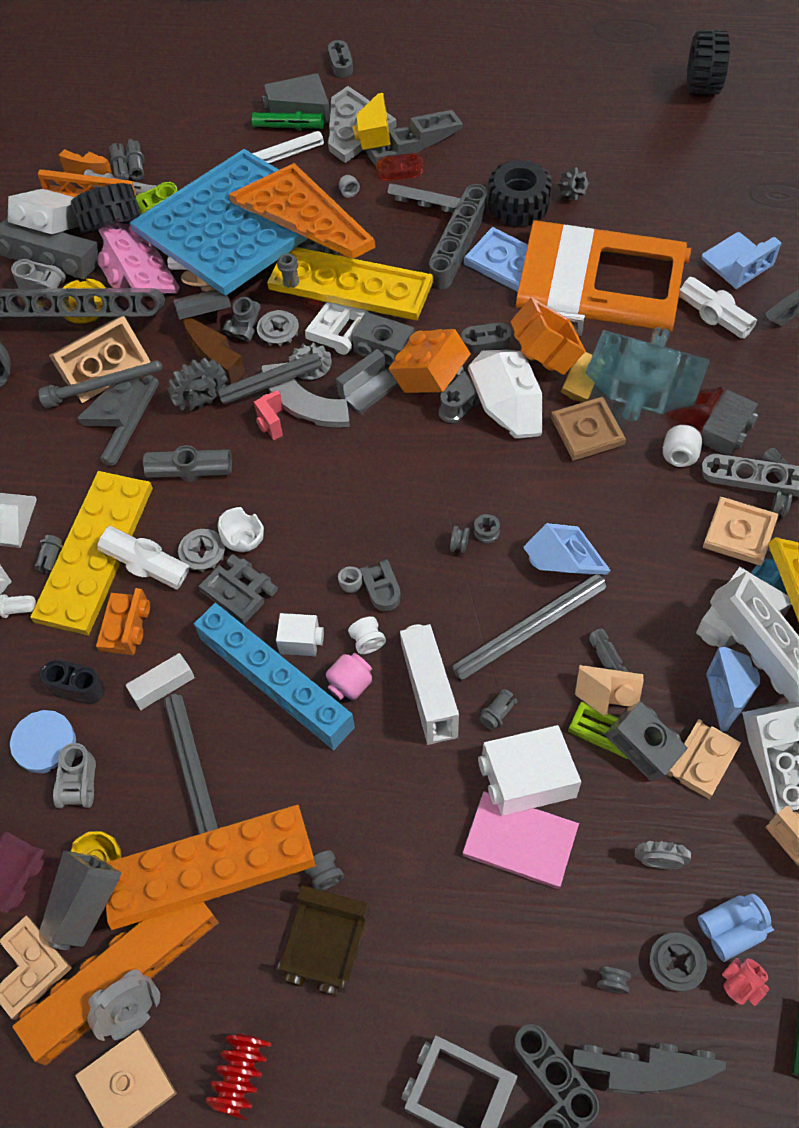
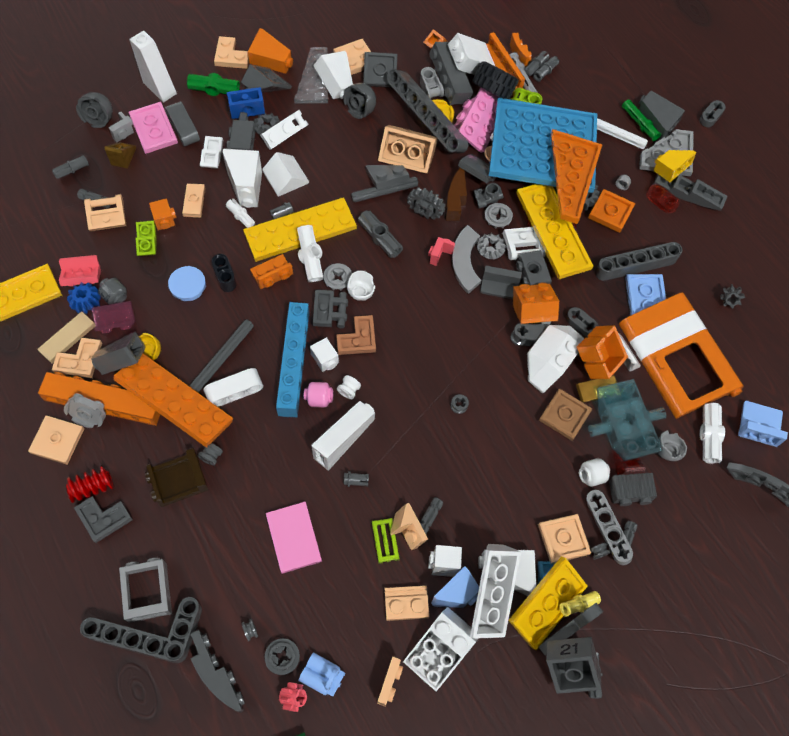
camera: 45 degrees right, 5 degrees up
(52, 395) = (368, 144): dark grey piece -> none
(76, 783) = (178, 311): light grey piece -> none
(160, 681) = (254, 310): white slope -> none
(250, 777) = (233, 387): none -> white beam
(270, 378) = (461, 234): dark grey axle -> none
(288, 266) = (530, 191): dark grey pin -> none
(309, 1099) = (100, 523): none -> dark grey plate
(313, 577) = (361, 341): none -> nougat plate
(353, 578) = (378, 357): light grey hinge -> none
(377, 216) = (611, 210): none -> orange plate
(383, 593) = (379, 379): dark grey plate -> none
(424, 198) = (650, 225): plate -> none
(459, 539) = (440, 394): dark grey bush -> none
(519, 192) = (703, 261): black tyre -> none
(529, 627) = (417, 464): axle -> none
(529, 770) = (330, 515): white brick -> none
(564, 550) = (474, 453): light blue slope -> none
(628, 737) = (386, 577): dark grey brick -> none
(662, 855) = (331, 612): light grey gear -> none
(688, 671) = (445, 560): none -> white brick
(709, 349) = (673, 446): none -> light grey hair

